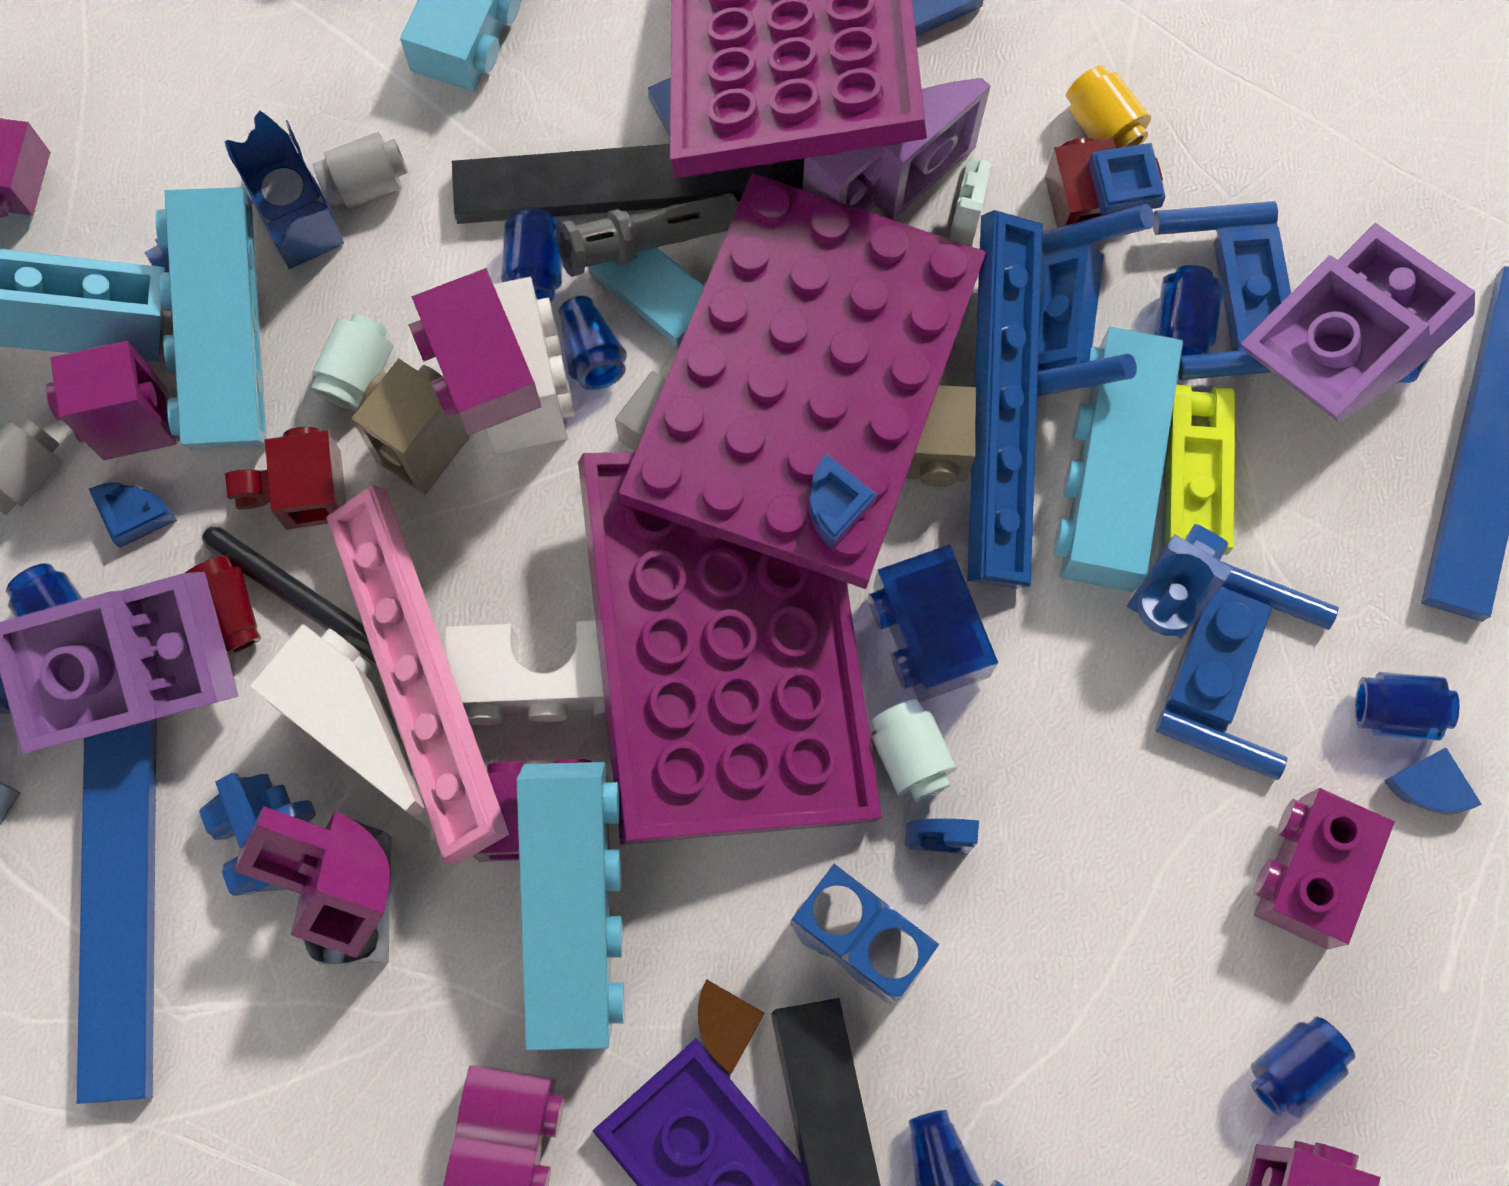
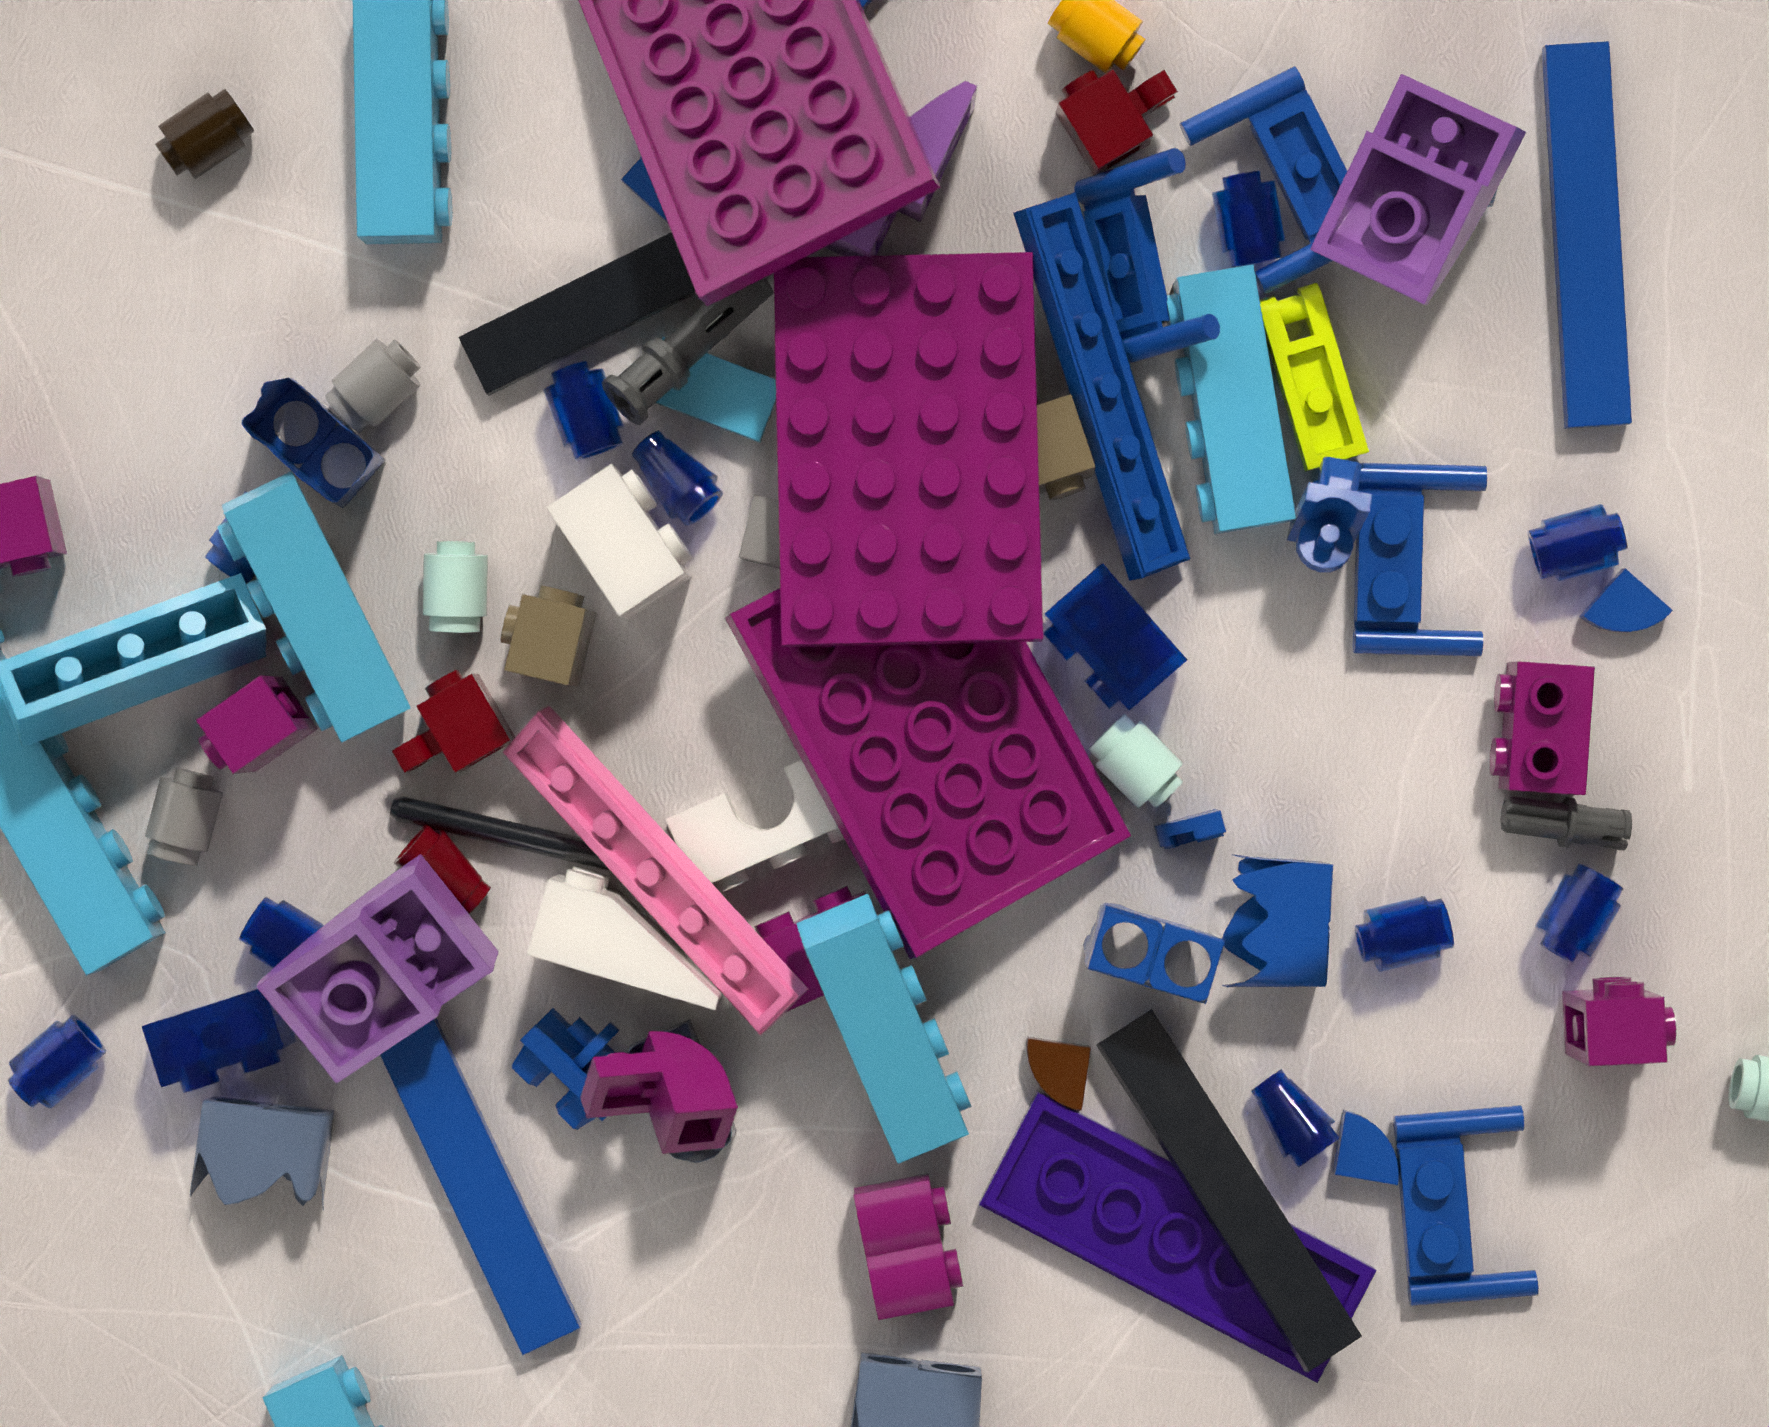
camera: 15 degrees left, 15 degrees up
(130, 511) = (308, 813): blue tile -> none
(476, 352) = (597, 571): magenta brick -> none
(837, 500) = (986, 579): blue tile -> none
(970, 201) = (993, 182): light aqua tile -> none
(1003, 966) = (1284, 923): none -> blue piece
(1118, 1018) = (1404, 933): none -> clear blue brick
(1126, 178) = (1142, 115): blue tile -> none
(1316, 971) = (1567, 822): none -> dark grey axle

